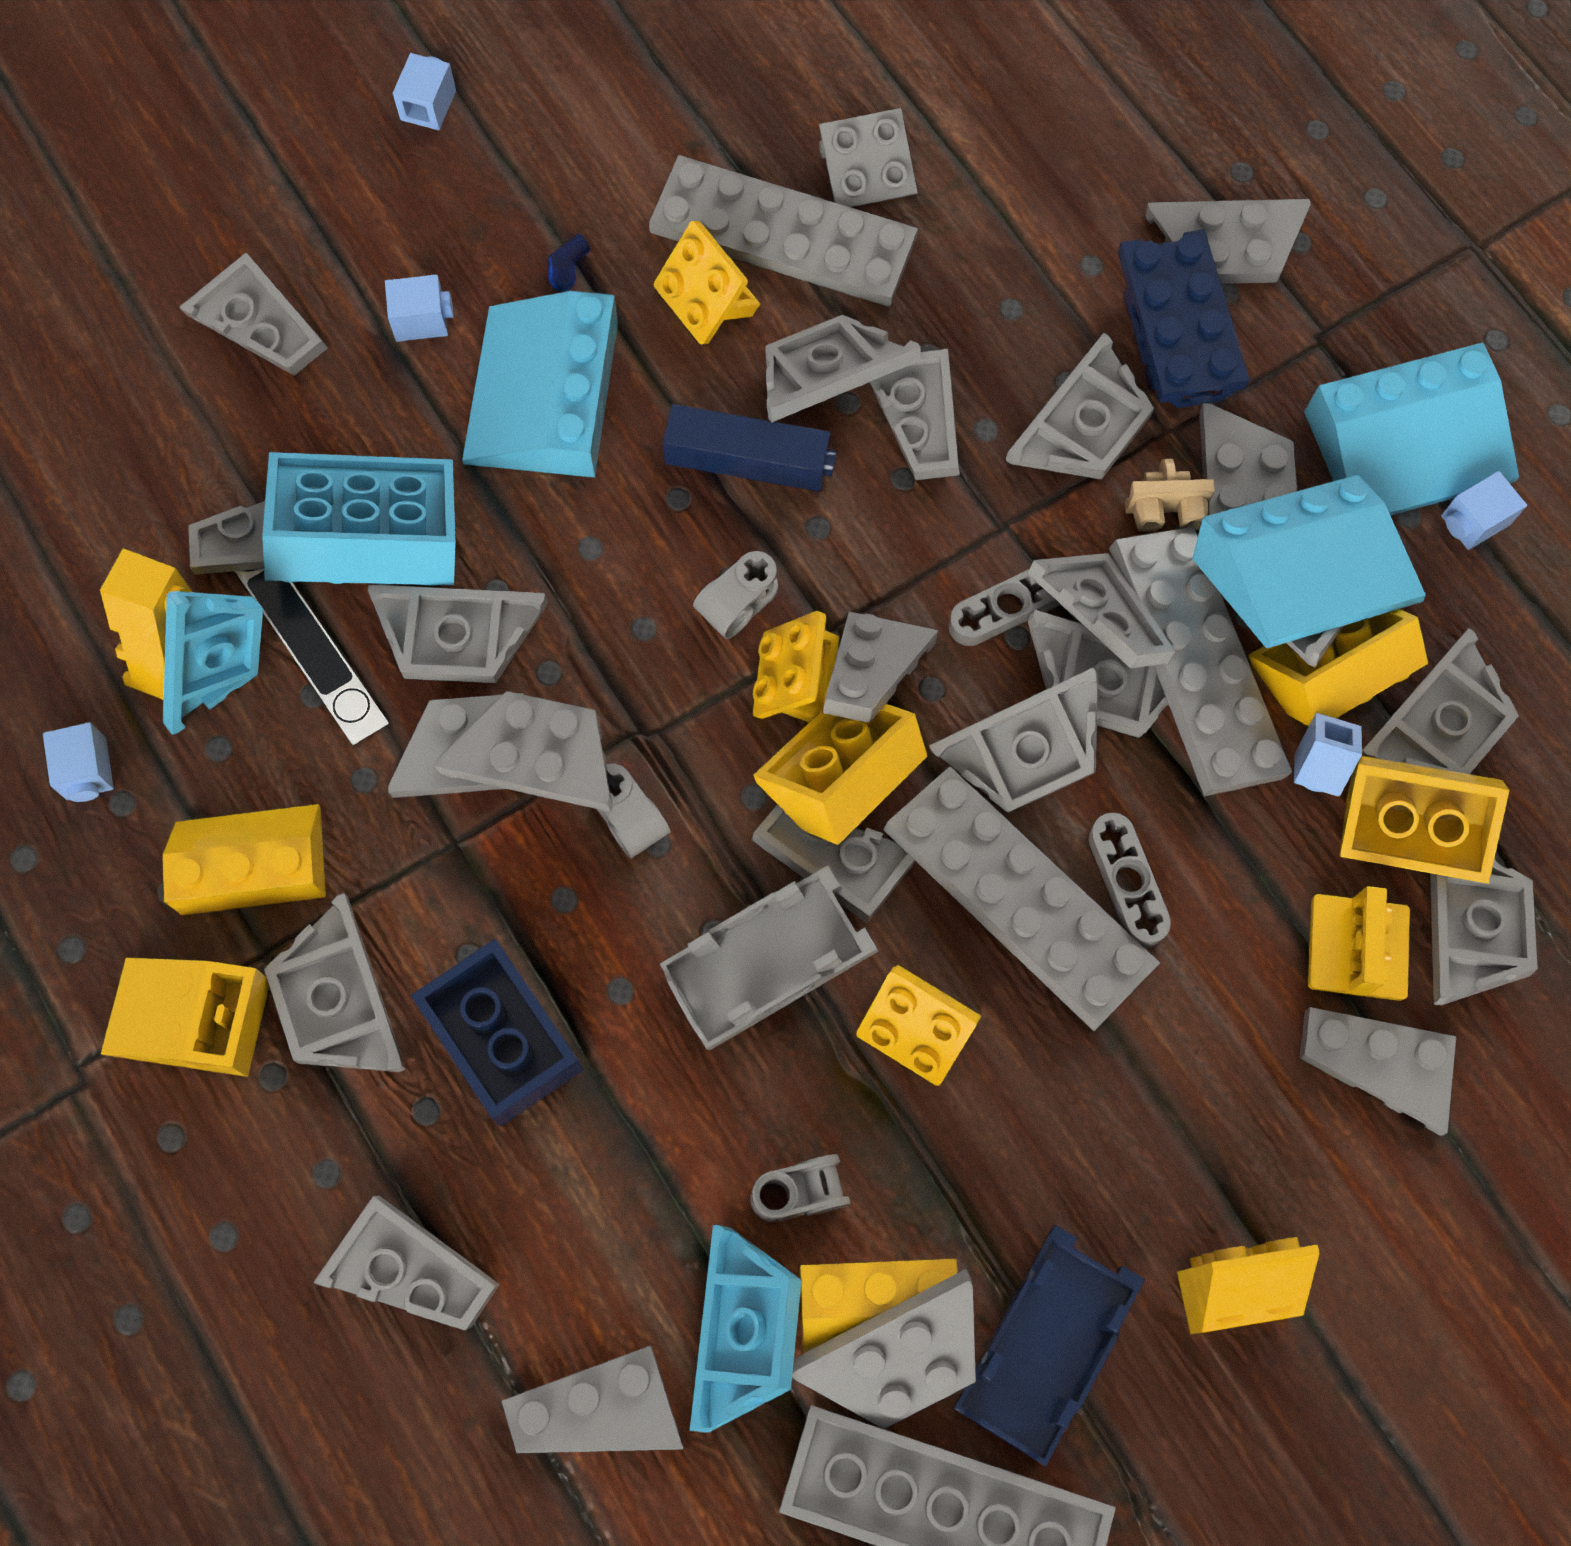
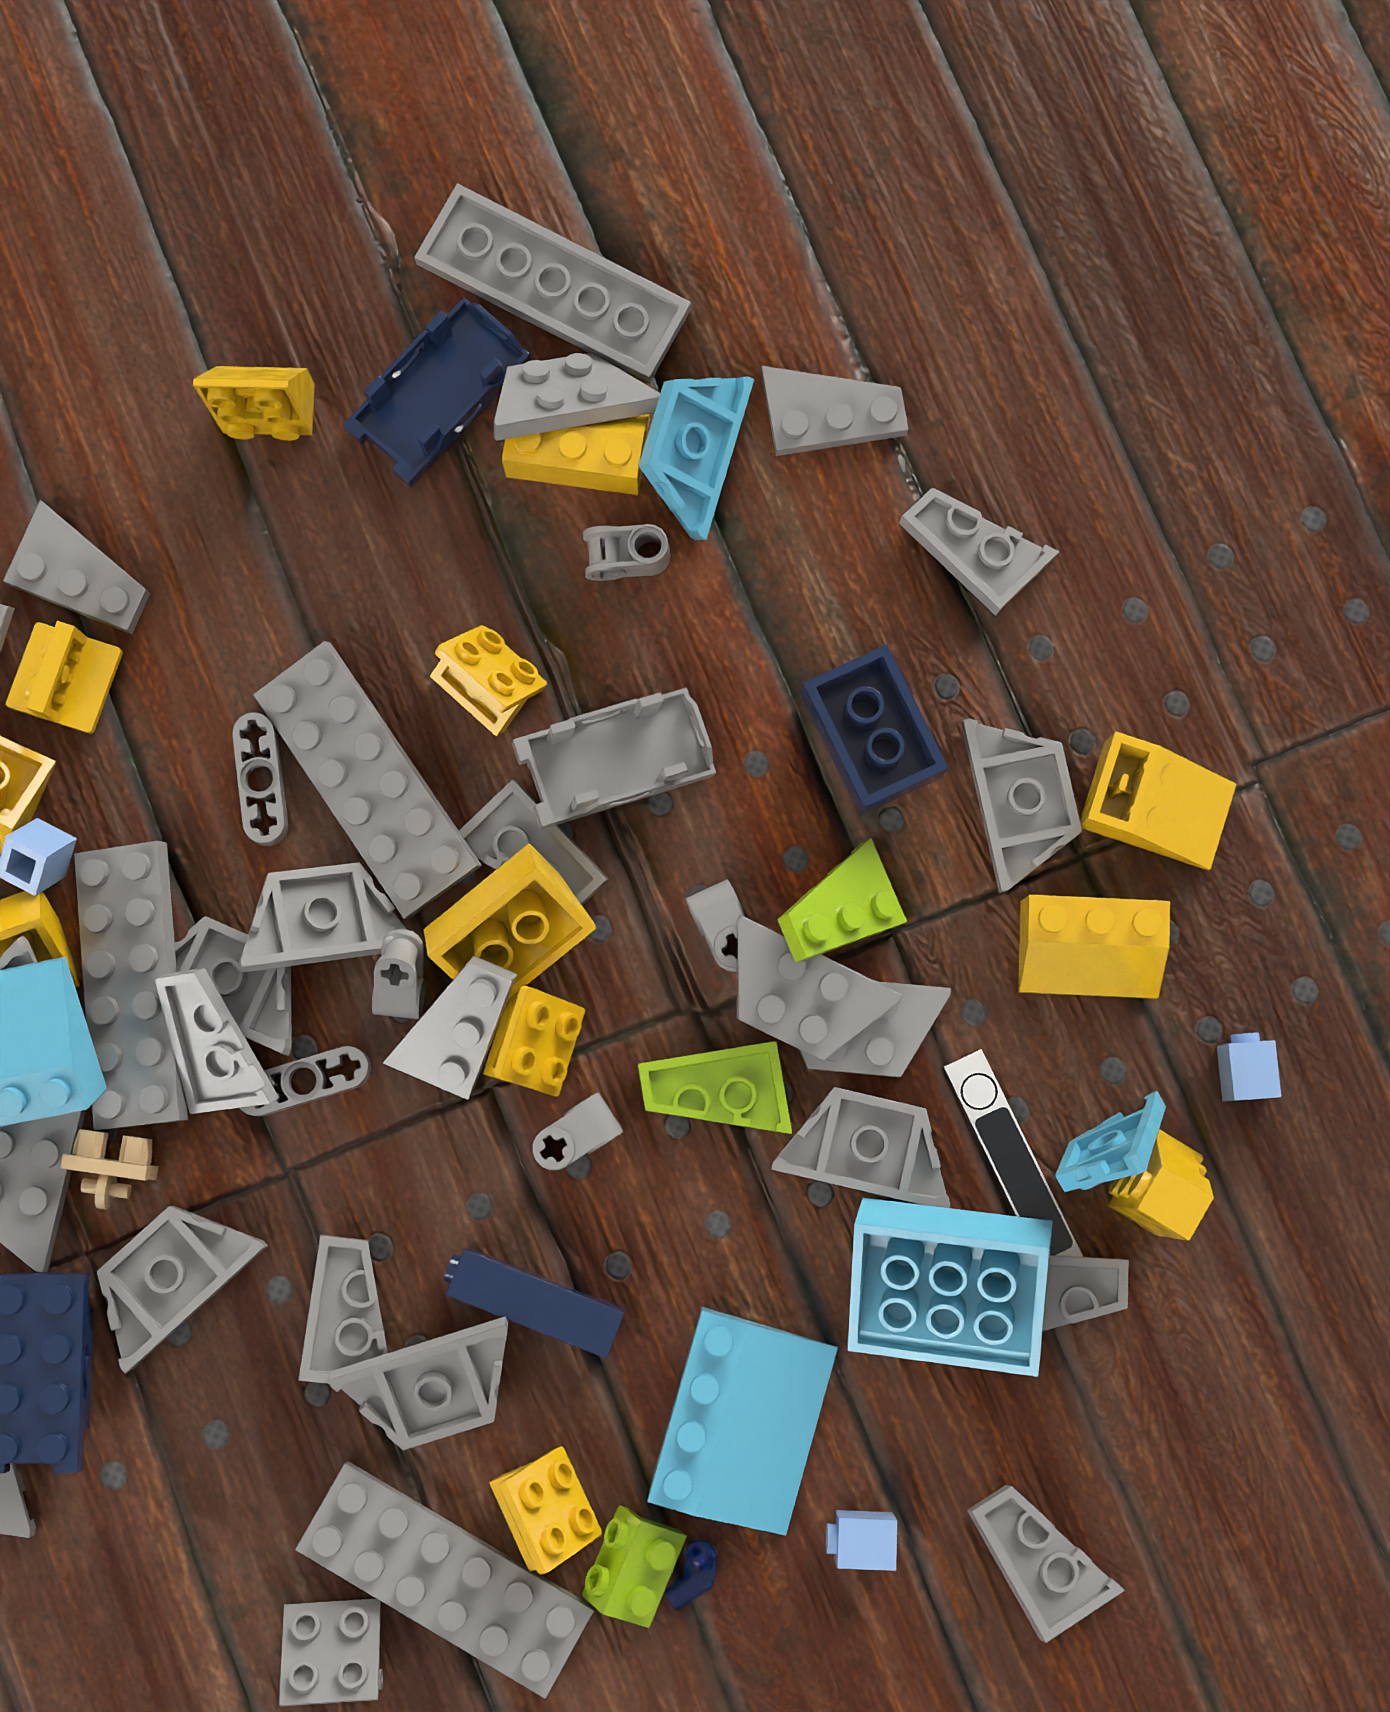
camera: 170 degrees left, 10 degrees up
(503, 840) = (843, 907): none -> lime wing
(604, 664) = (720, 1086): none -> lime wing
(622, 258) = (632, 1567): none -> lime bracket
(938, 703) = (399, 976): none -> light grey piece

